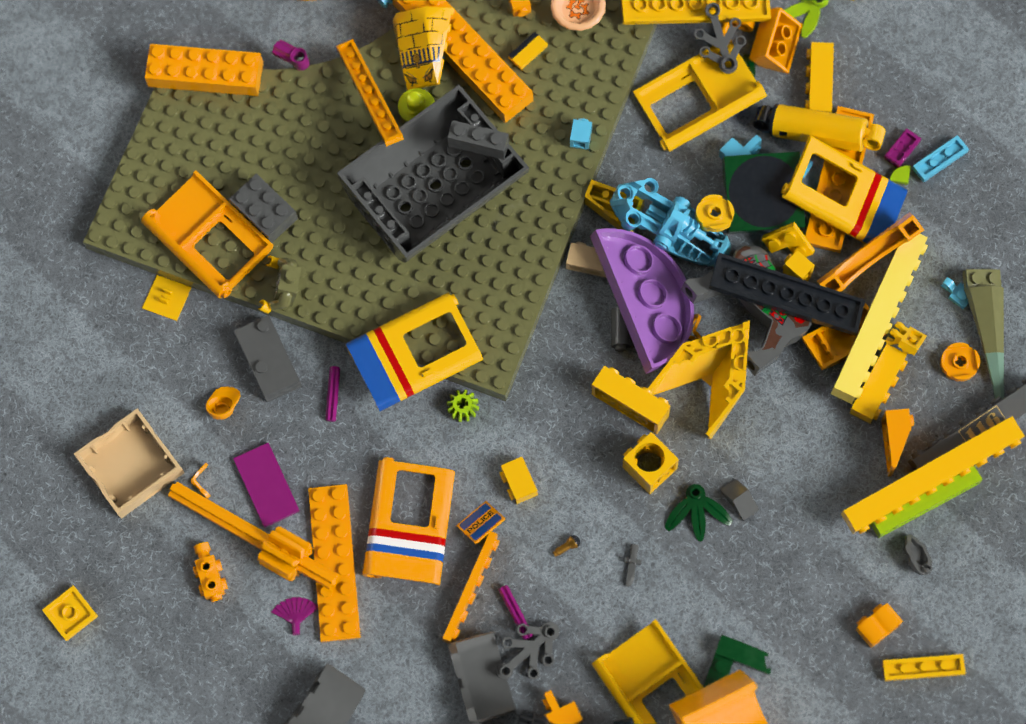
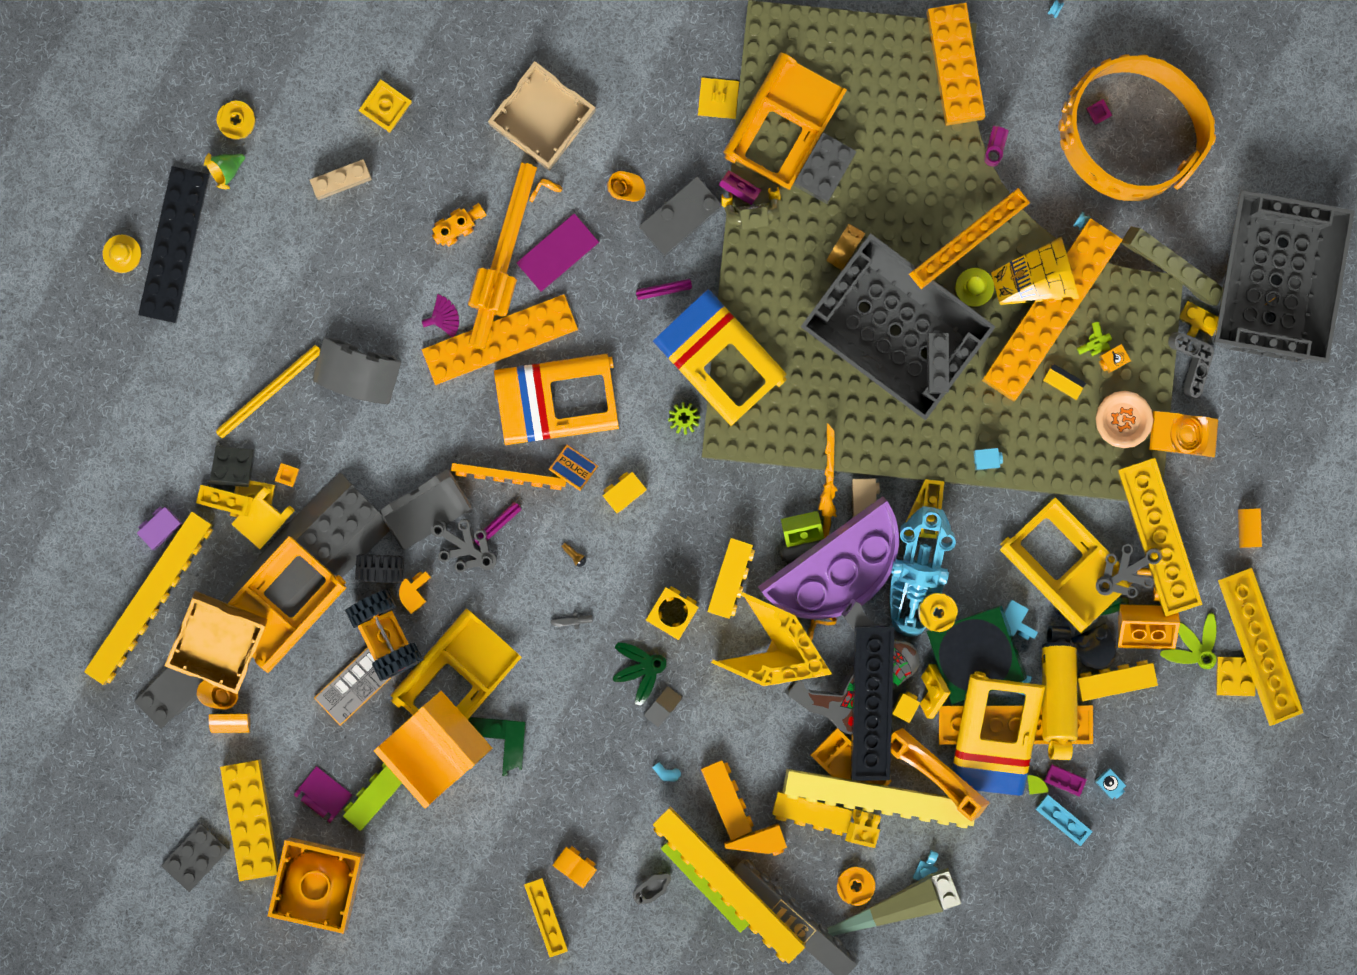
camera: 65 degrees right, 15 degrees up
(127, 675) = (340, 179): none -> tan brick
(257, 290) = (740, 187): none -> magenta plate
(344, 208) = (845, 247): none -> pearl gold brick
(499, 14) = (1097, 341): none -> lime piece
(574, 289) = (828, 493): none -> light orange sword
(600, 321) = (802, 528): none -> lime brick
(784, 88) = (1096, 647): none -> black slope
(808, 512) = (667, 775): none -> medium azure arm
(847, 460) = (726, 799): none -> light orange brick
(915, 108) = (1110, 784): none -> medium azure brick

